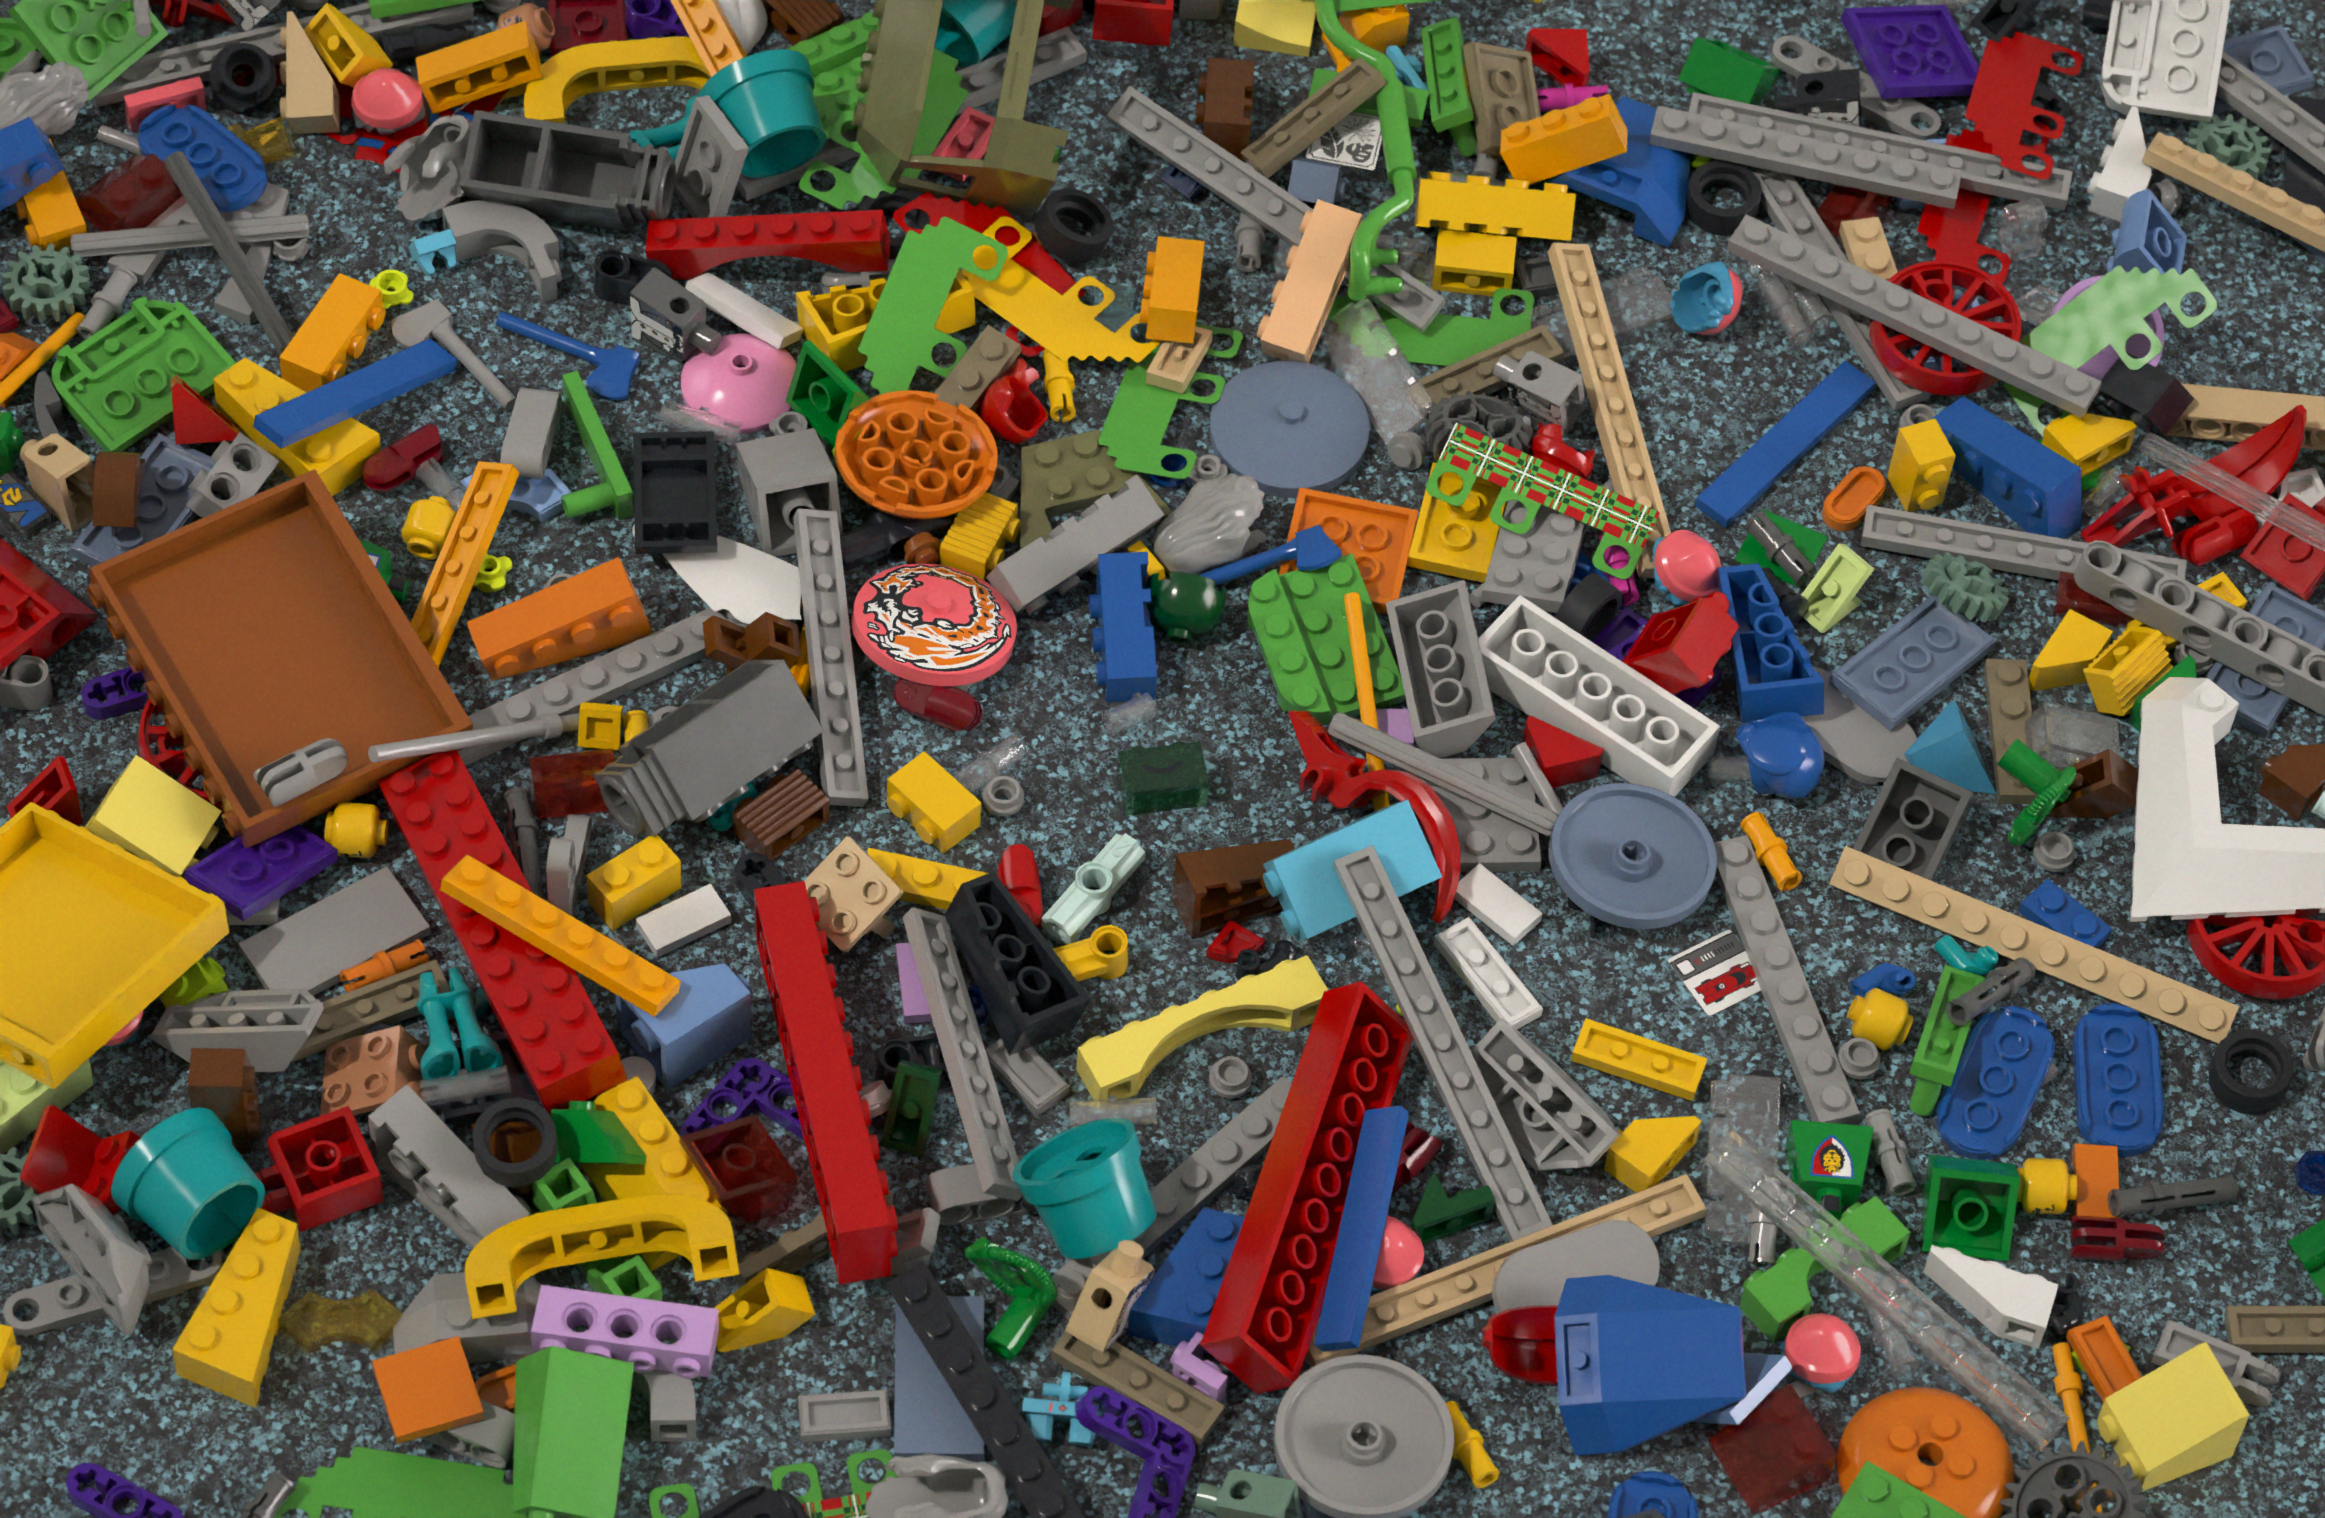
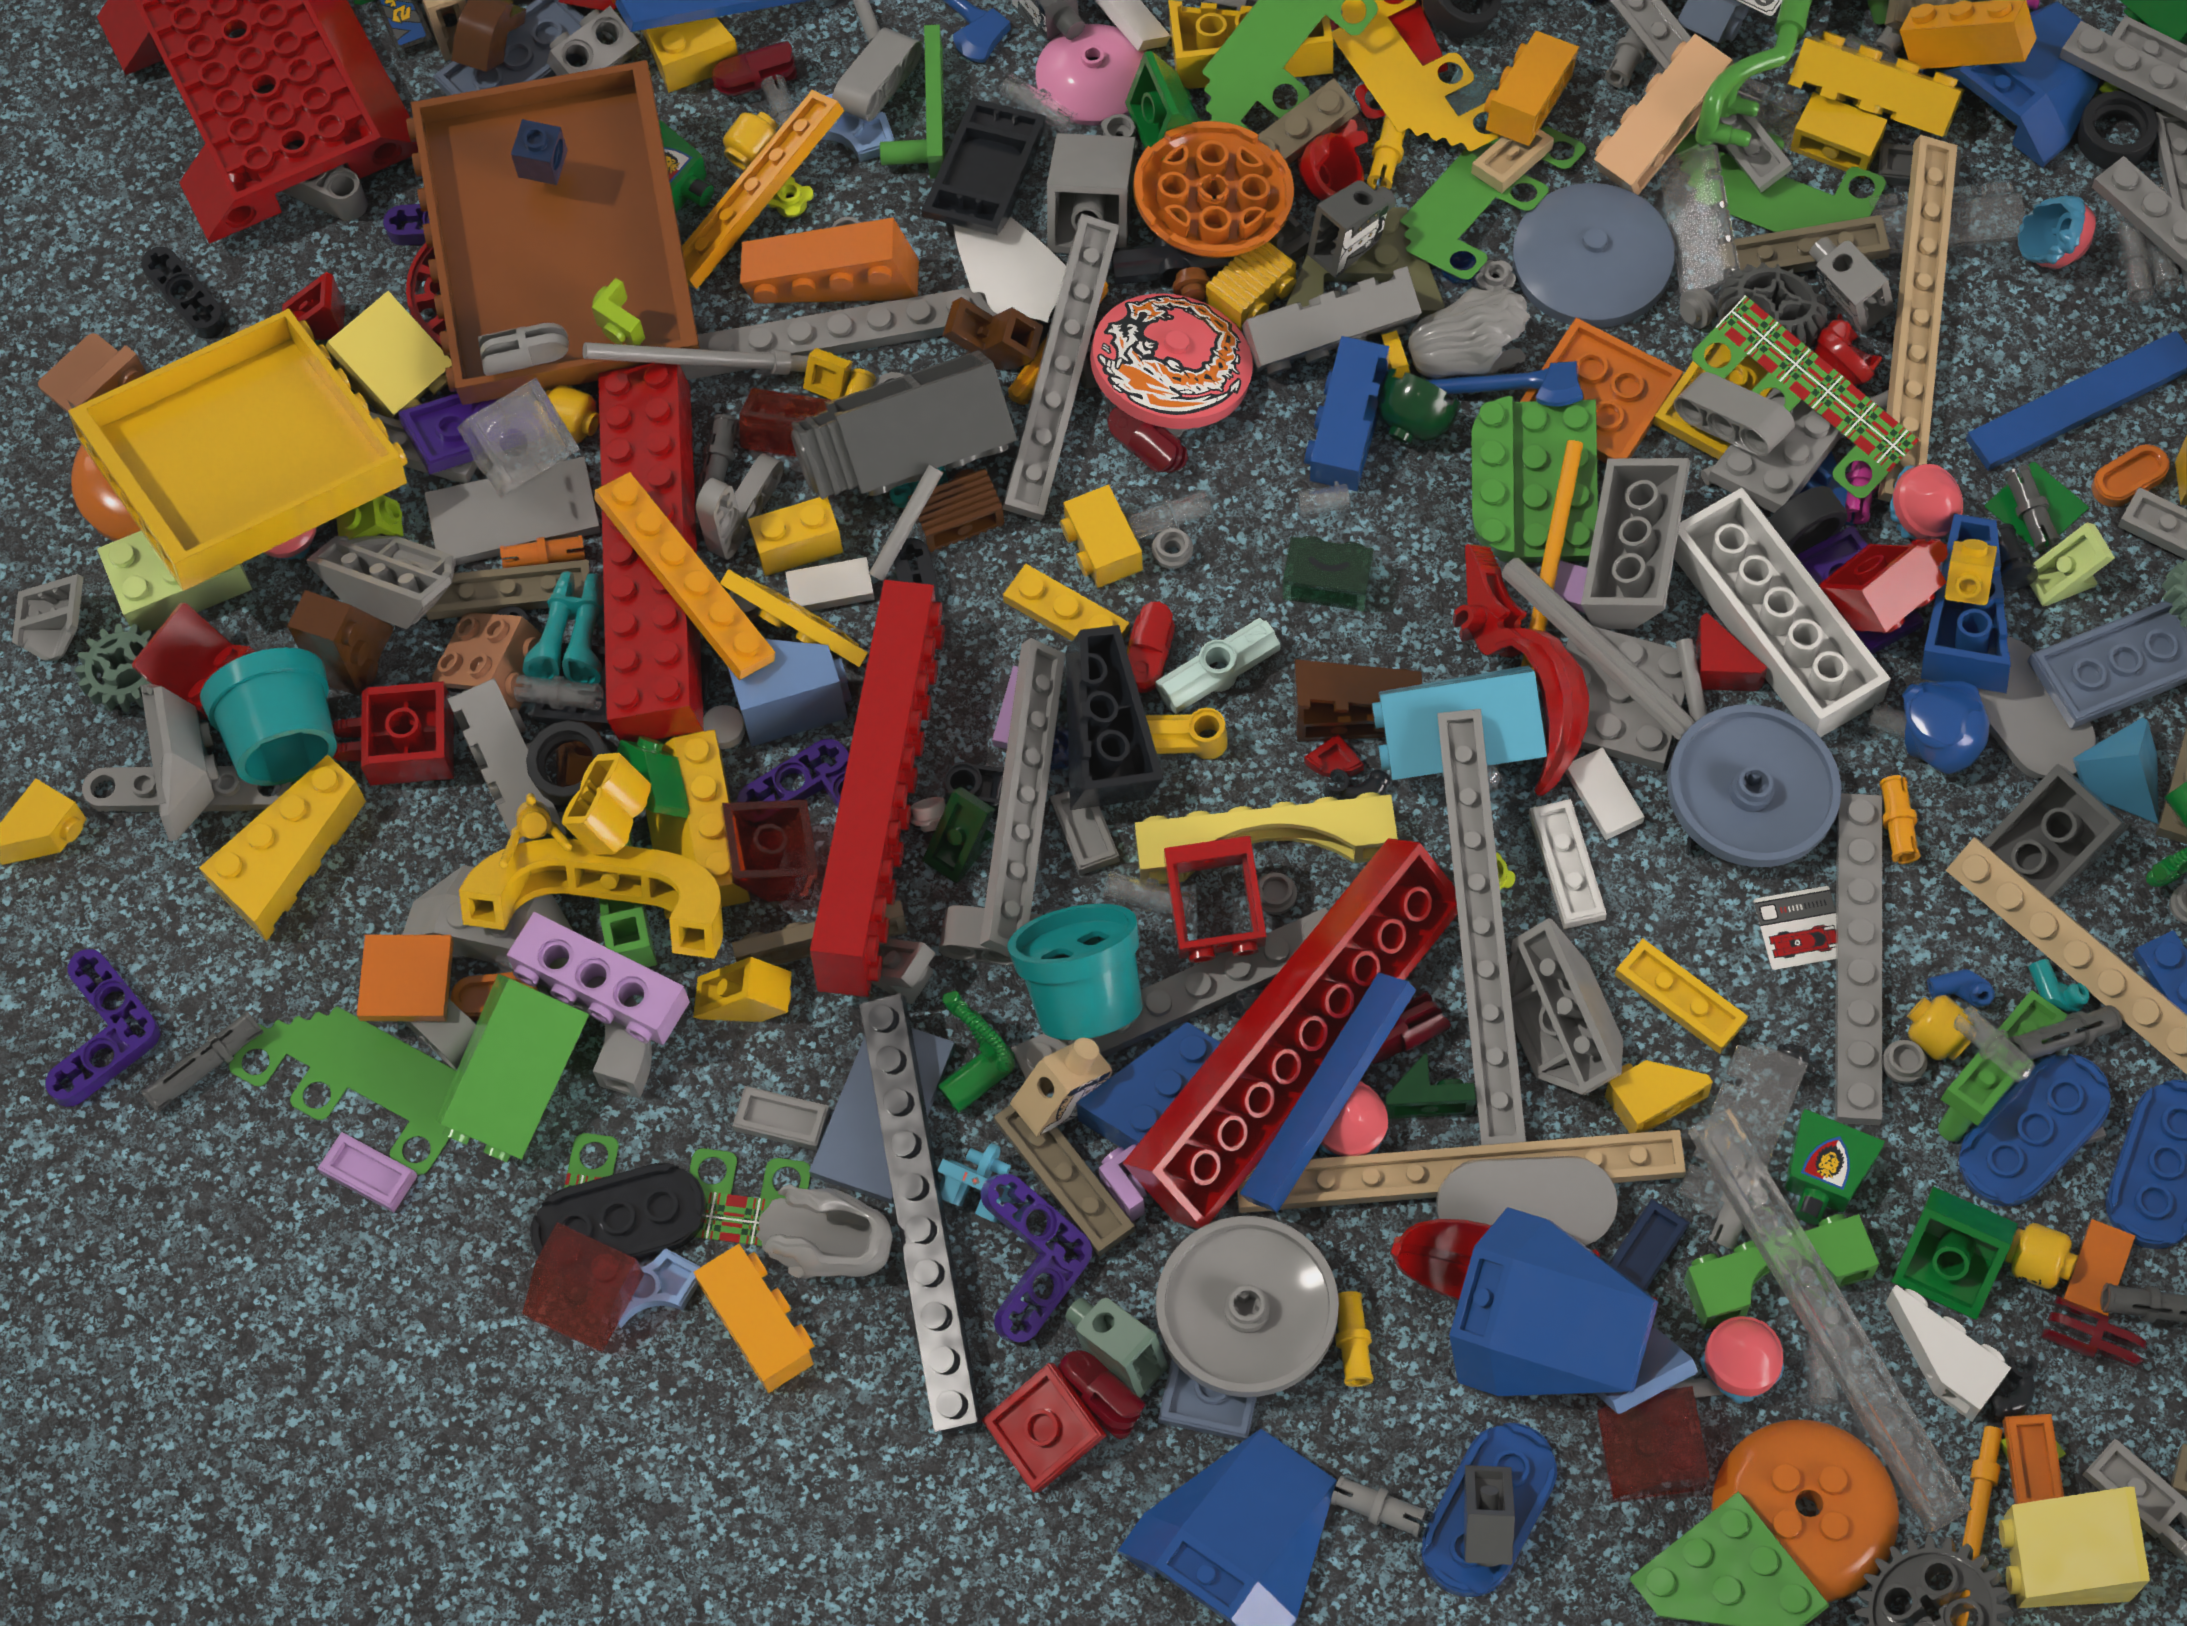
camera: 30 degrees right, 10 degrees up
(246, 580) = (539, 152): none -> dark blue brick
(321, 1321) = (385, 885): clear yellow tile -> none
(330, 858) = (517, 438): none -> clear piece
(385, 720) = (616, 322): none -> lime bracket
(502, 1206) = (533, 823): none -> yellow plant
(575, 1163) = (606, 804): none -> yellow brick
(667, 949) = (783, 612): none -> yellow wing
(742, 838) = (906, 522): none -> light grey bar
(852, 895) = (982, 608): tan bracket -> none
(1061, 439) = (1348, 225): none -> dark grey torso
(1171, 1051) = (1209, 856): none -> red window
(1486, 532) = (1734, 414): none -> light grey beam
(1699, 1271) = (1649, 1244): none -> dark blue tile
(1757, 611) = (1970, 572): none -> yellow bracket
(1890, 1153) = (1897, 1170): light grey pin -> none
(1937, 1012) = (1994, 1045): none -> clear axle

